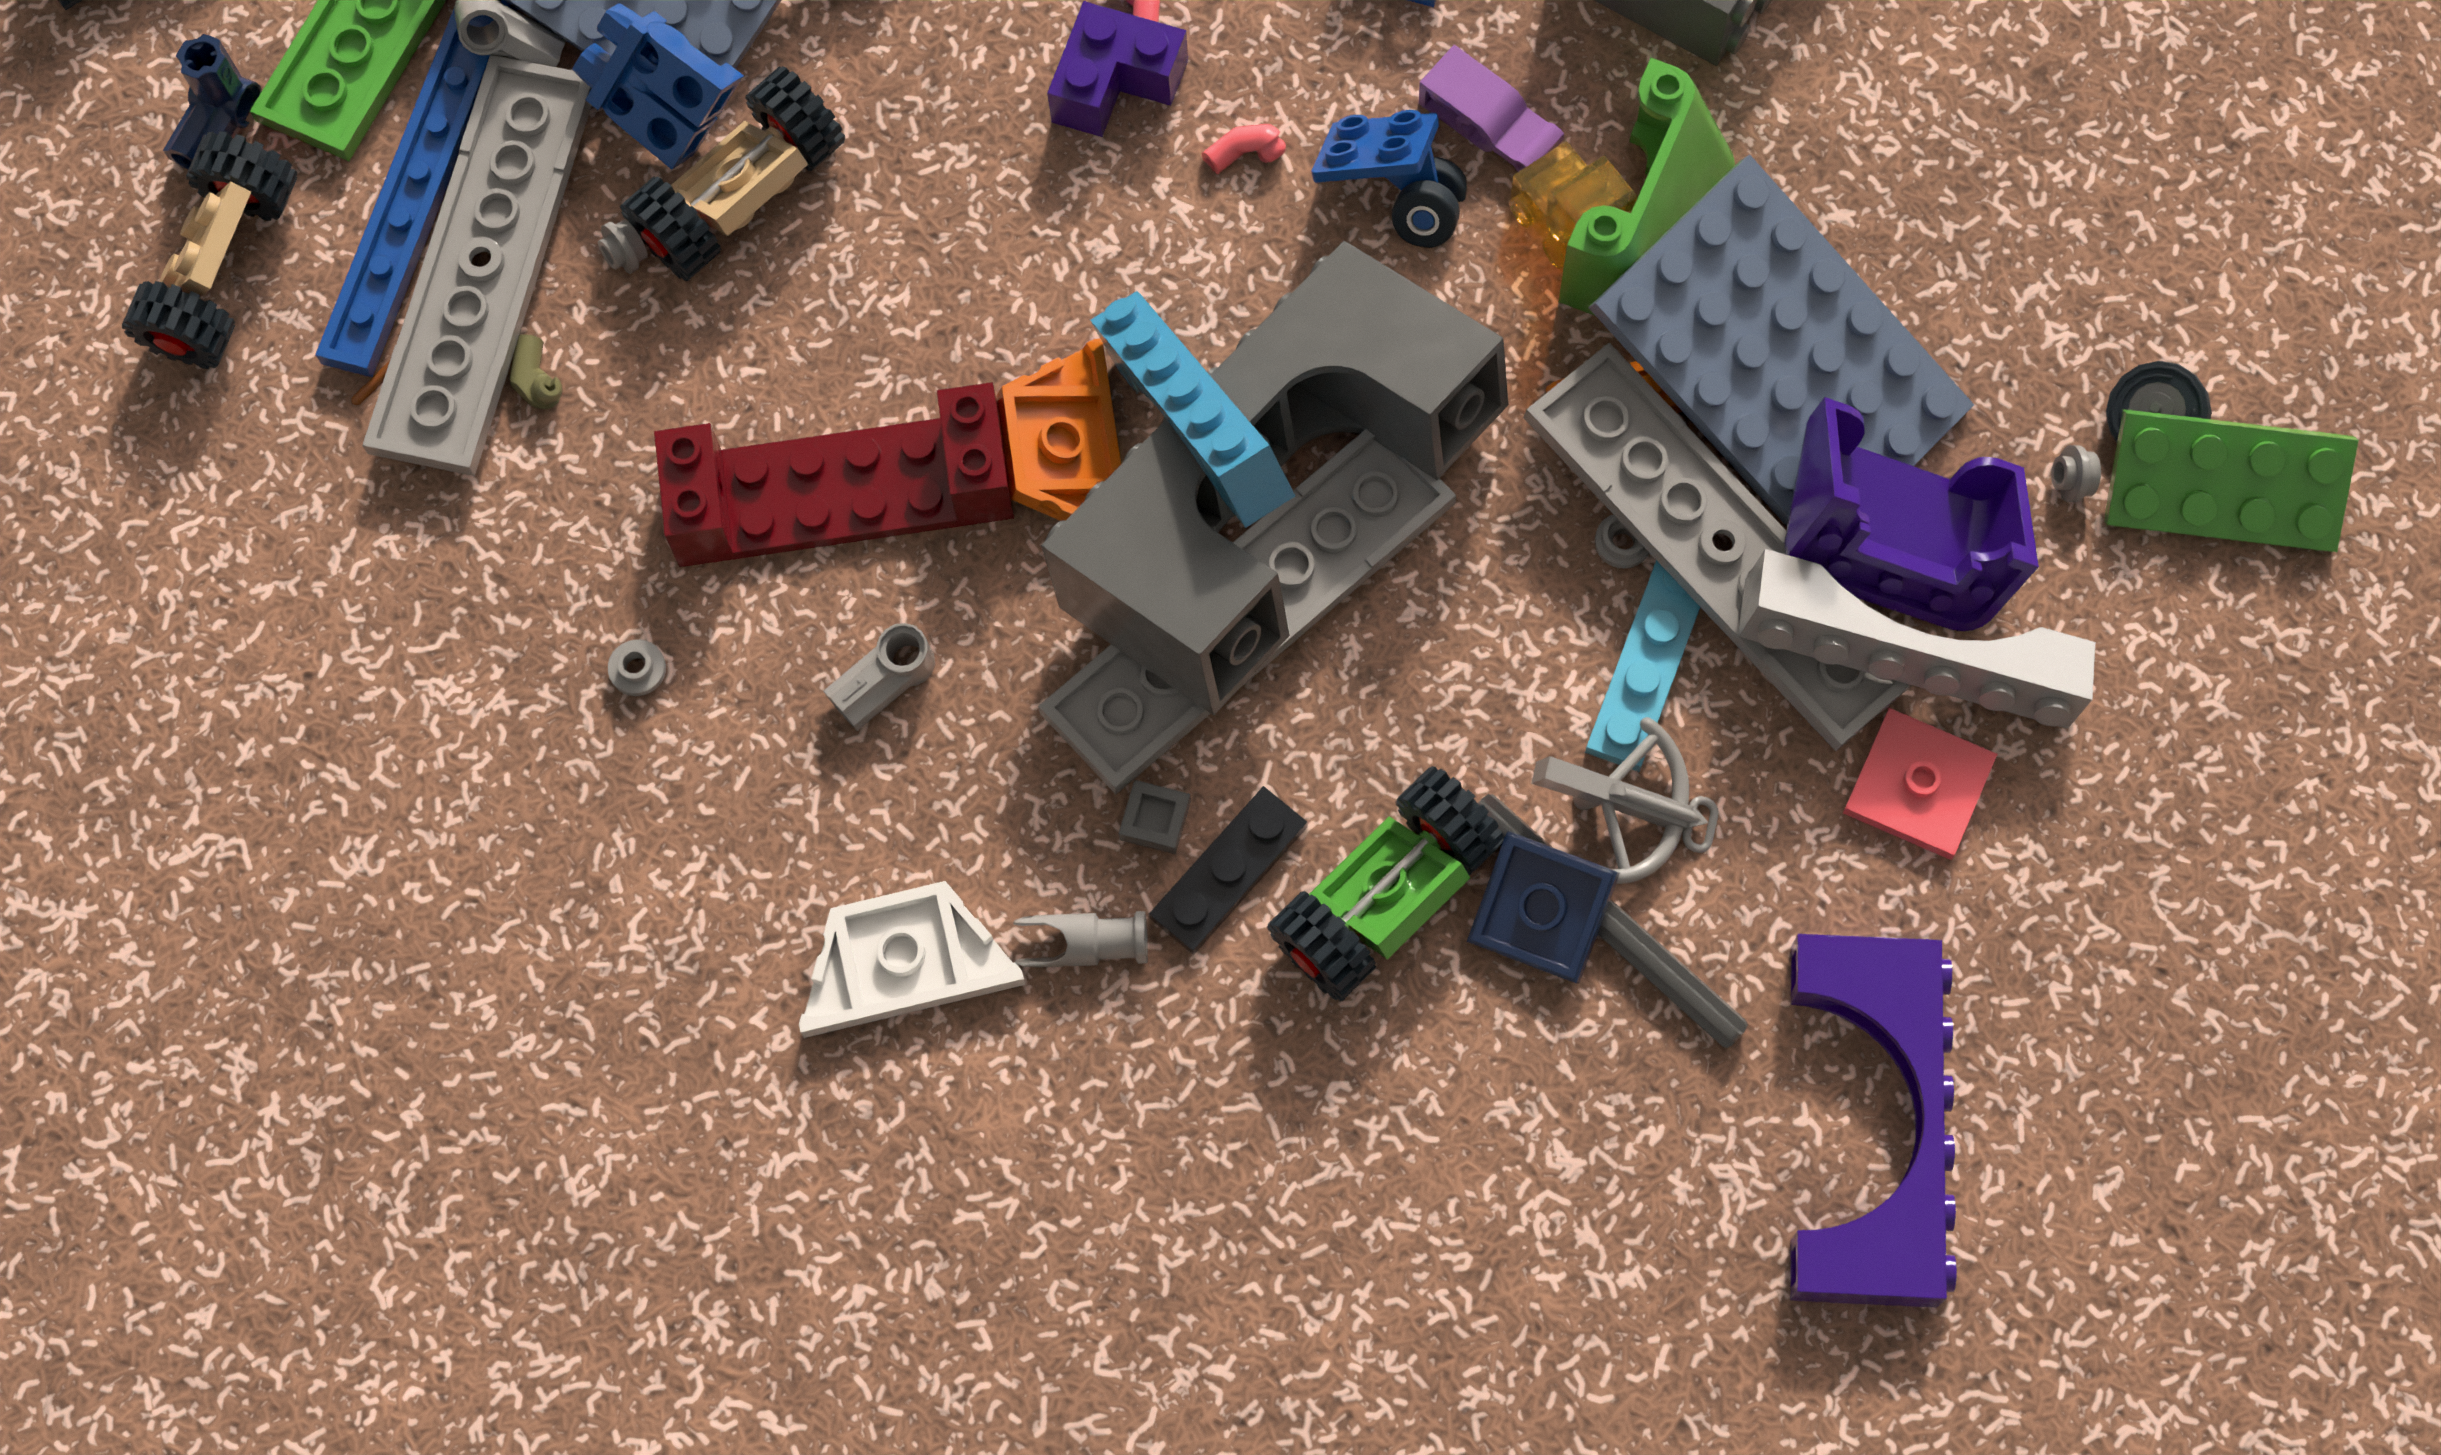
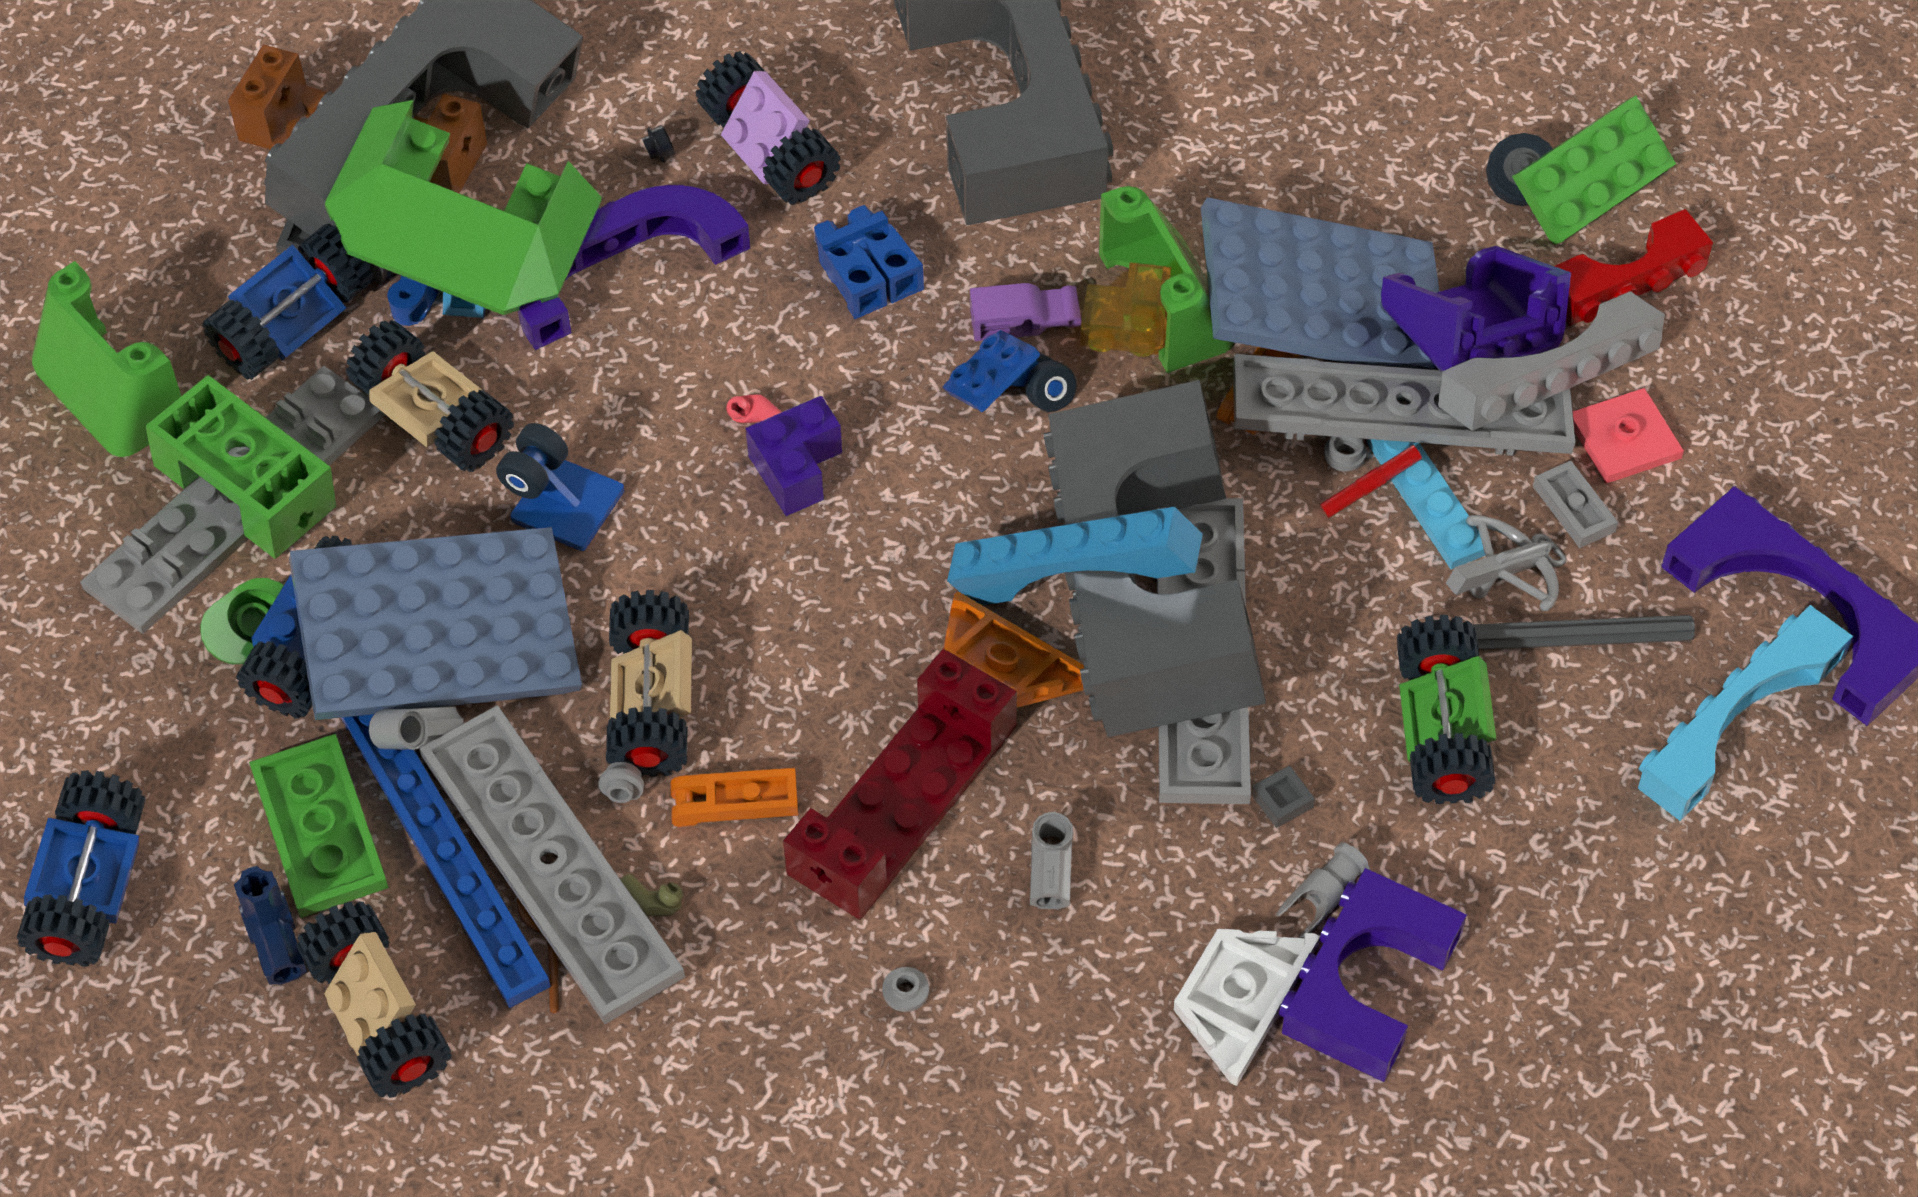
camera: 50 degrees left, 15 degrees down
(655, 83) = (550, 671): blue hips -> none
(702, 351) = (734, 796): none -> orange plate
(948, 1040) = (1372, 915): none -> dark purple arch
(1228, 870) = (1351, 787): black plate -> none
(1242, 140) = (904, 436): coral arm -> none
(1543, 907) = (1530, 652): dark blue tile -> none
(1604, 593) = (1370, 481): none -> red piece
(1777, 804) = (1575, 504): none -> light grey plate
(1803, 1168) = (1800, 656): none -> medium azure arch
(2076, 473) = (1519, 230): light grey plate -> none
(2209, 641) = (1673, 249): none -> red arch

